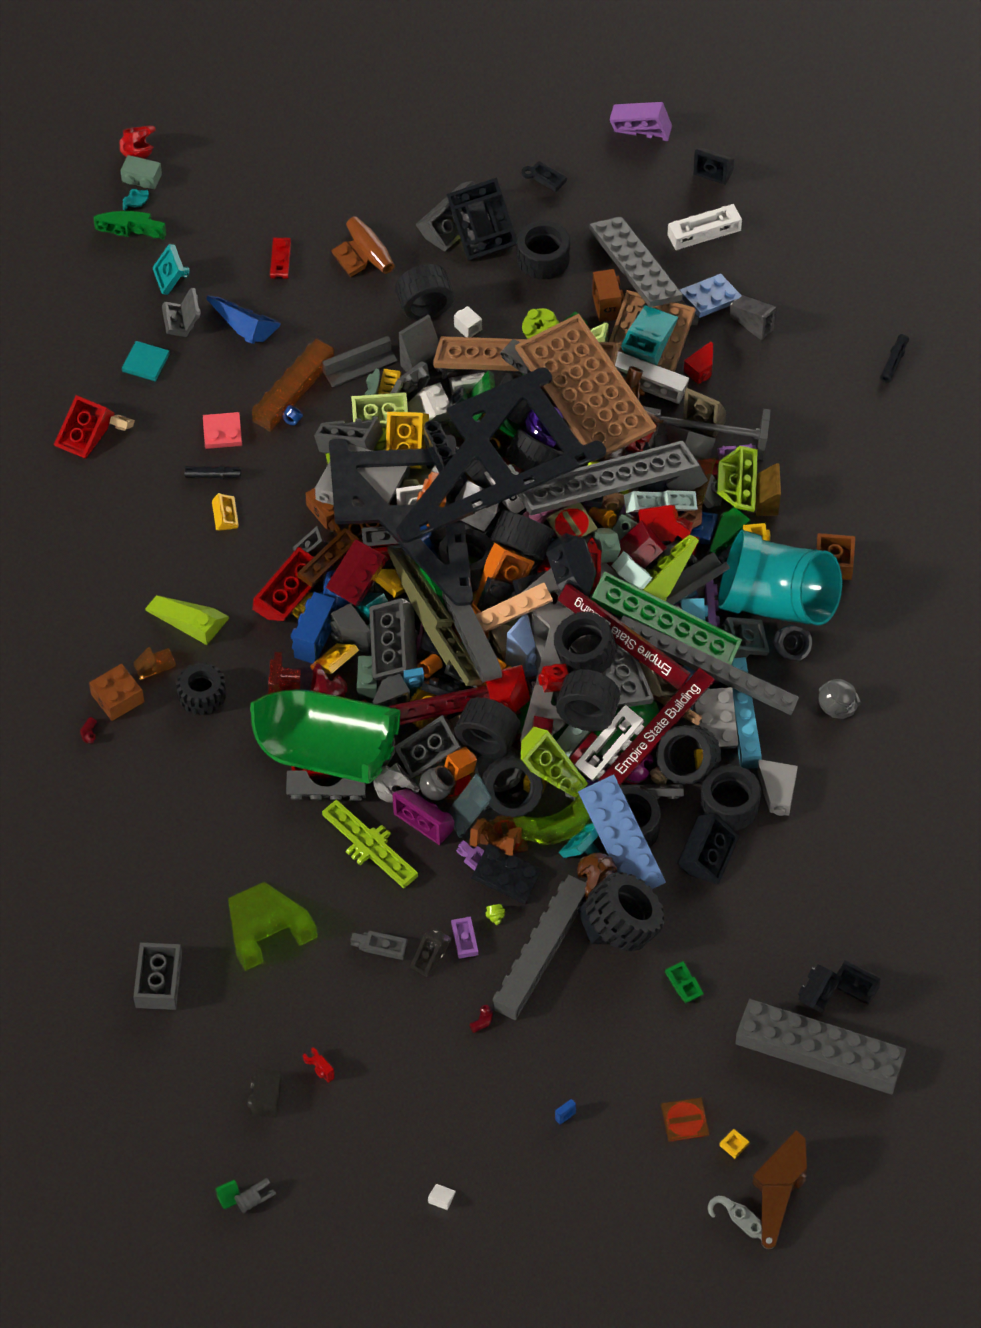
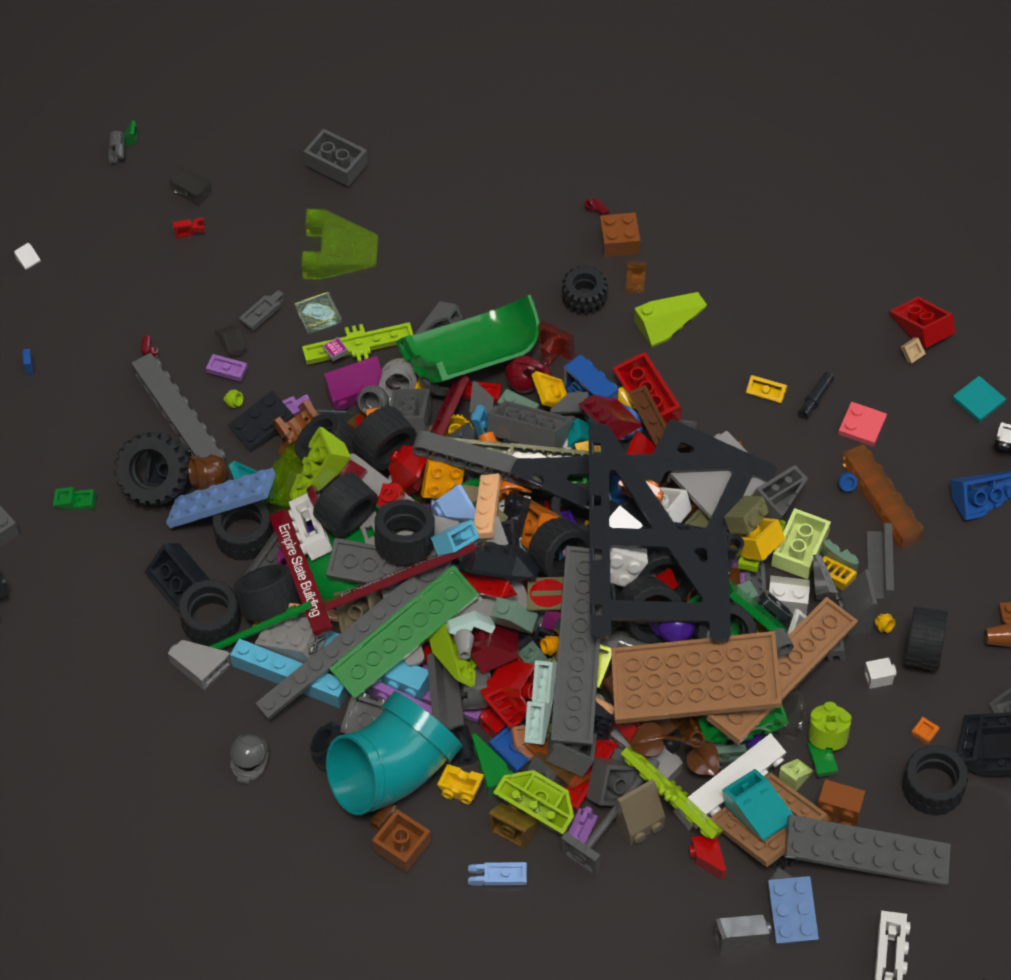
camera: 120 degrees right, 0 degrees up
(351, 899) = (318, 312): none -> clear light blue tile
(392, 851) = (335, 349): none -> tile
(393, 438) = (746, 514): none -> olive brick
(497, 279) = (925, 730): none -> orange tile
(570, 601) = (455, 537): none -> medium azure slope
(656, 561) = (464, 642): none -> light grey cone
(675, 392) = (672, 793): none -> lime hinge
(703, 708) = (292, 612): none -> green bar
(812, 487) = (499, 873): none -> light blue hinge

